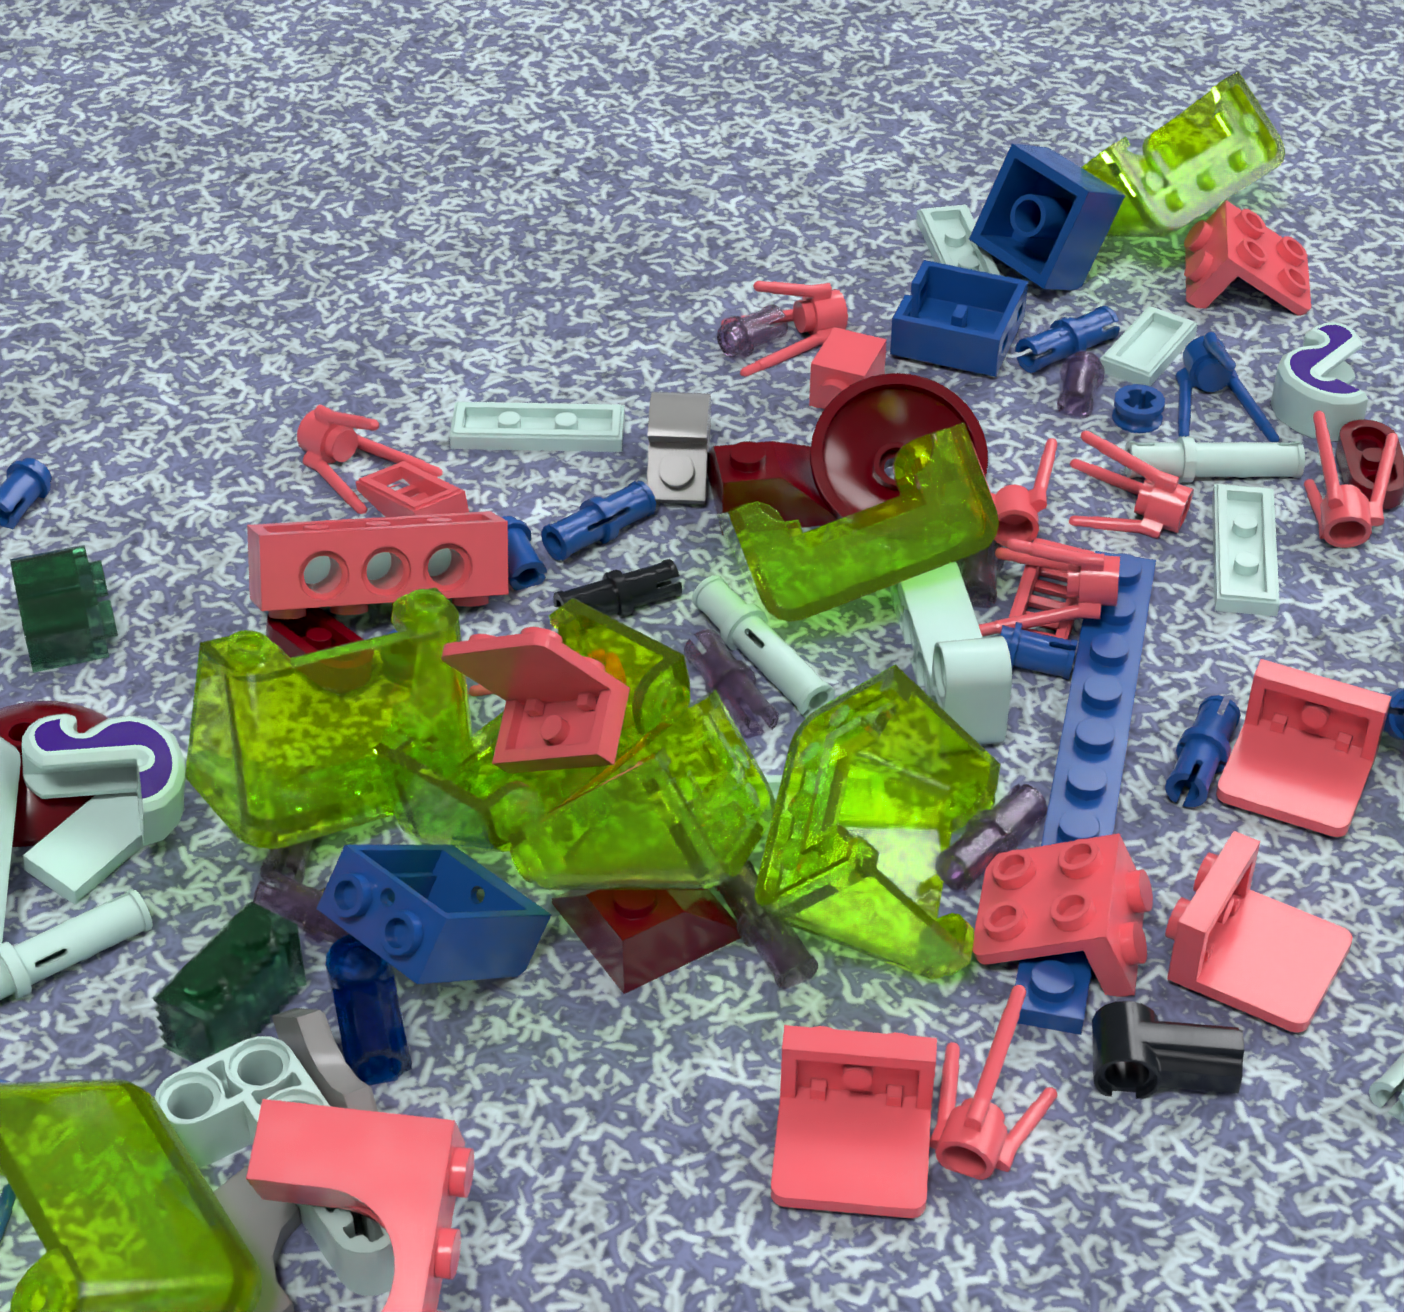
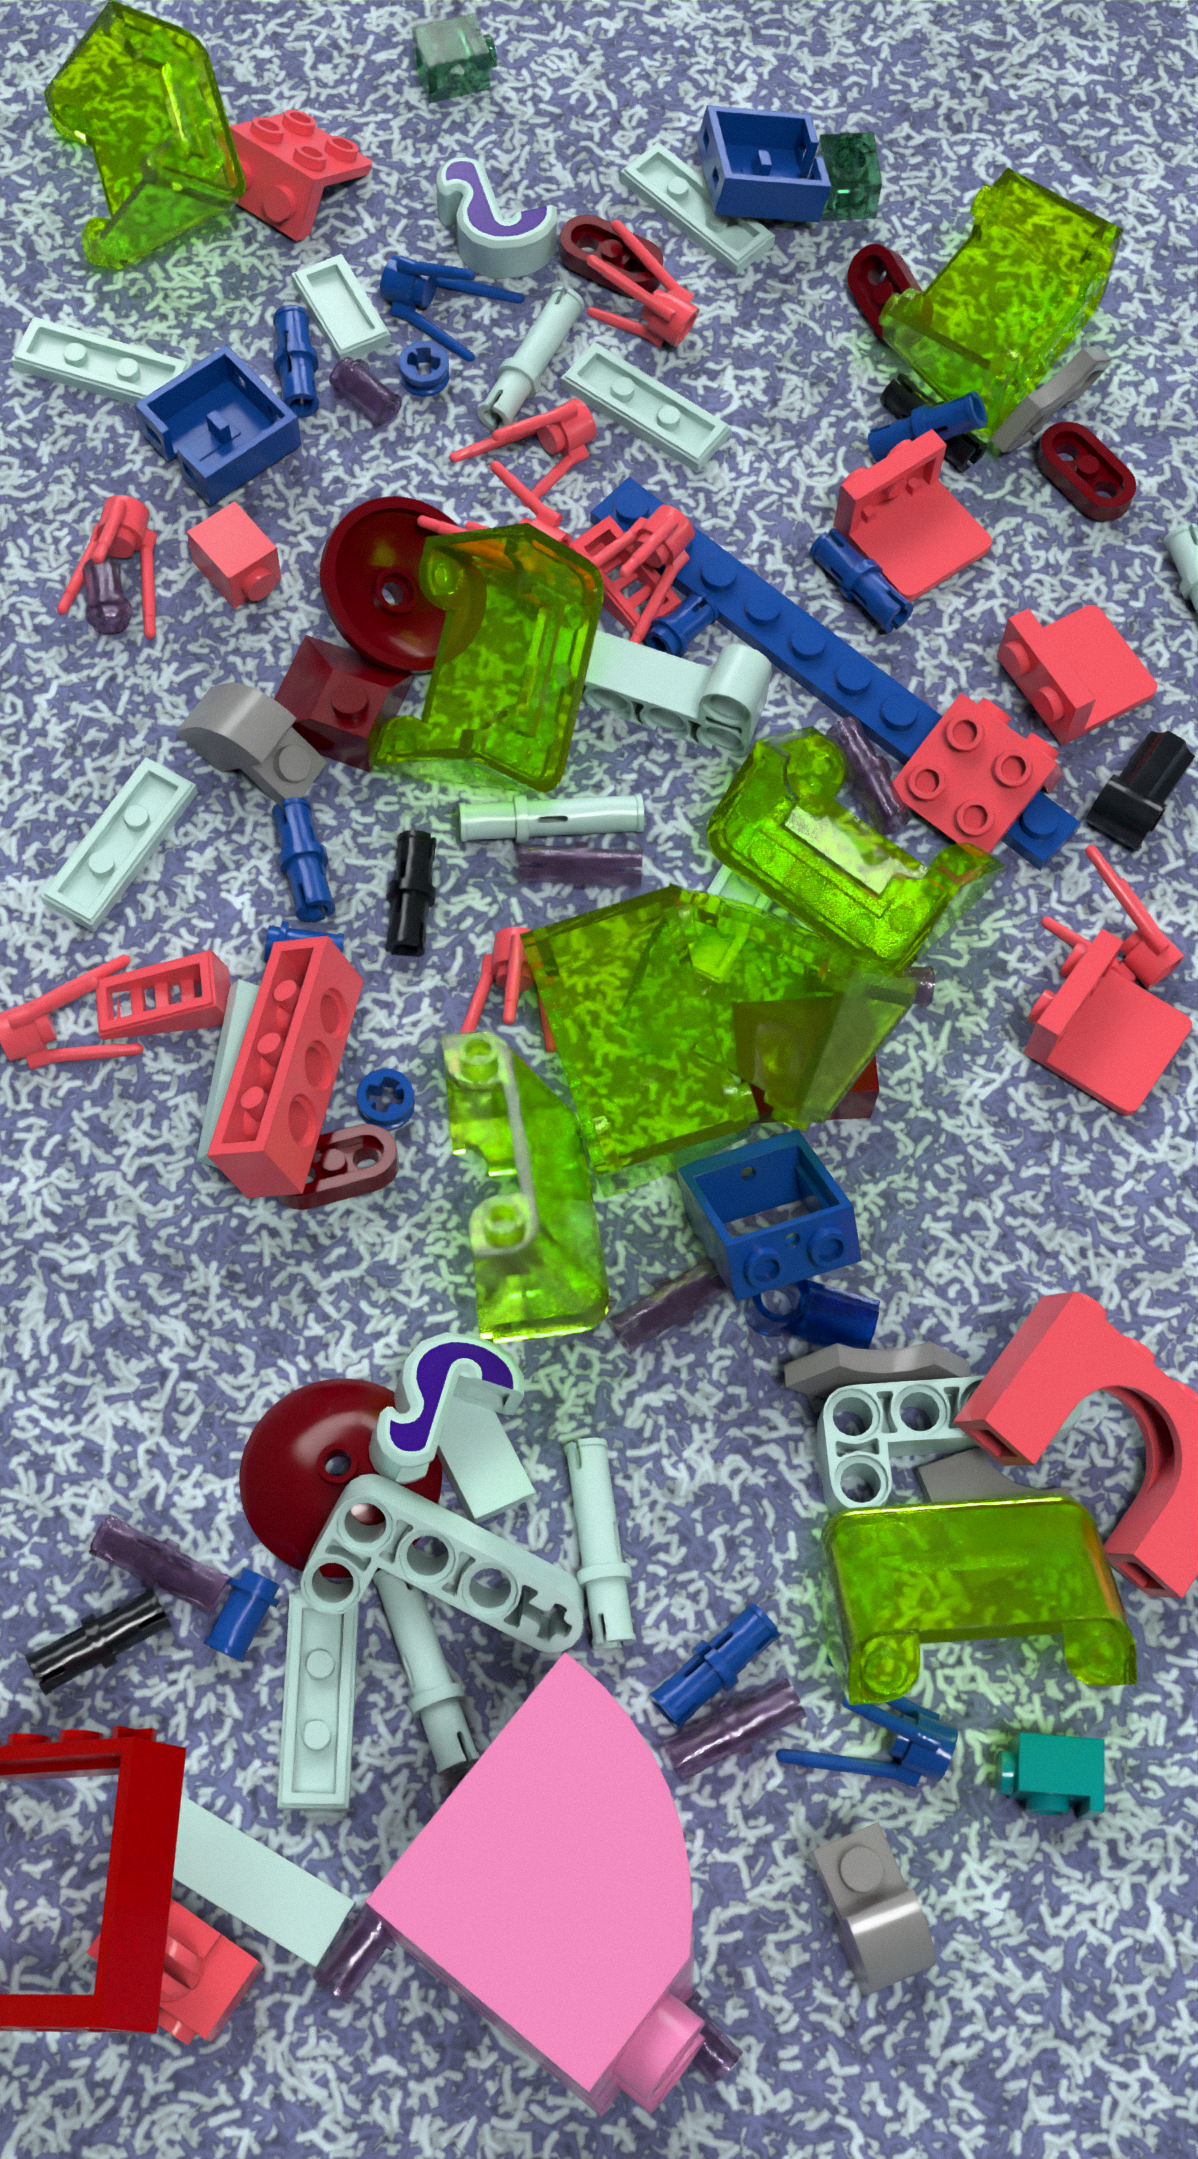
camera: 65 degrees left, 25 degrees up
(61, 607) = (138, 1368): clear green brick -> none
(231, 984) = (735, 1404): clear green brick -> none
(557, 705) = (637, 1020): coral bracket -> none
(1046, 217) = (152, 273): blue brick -> none

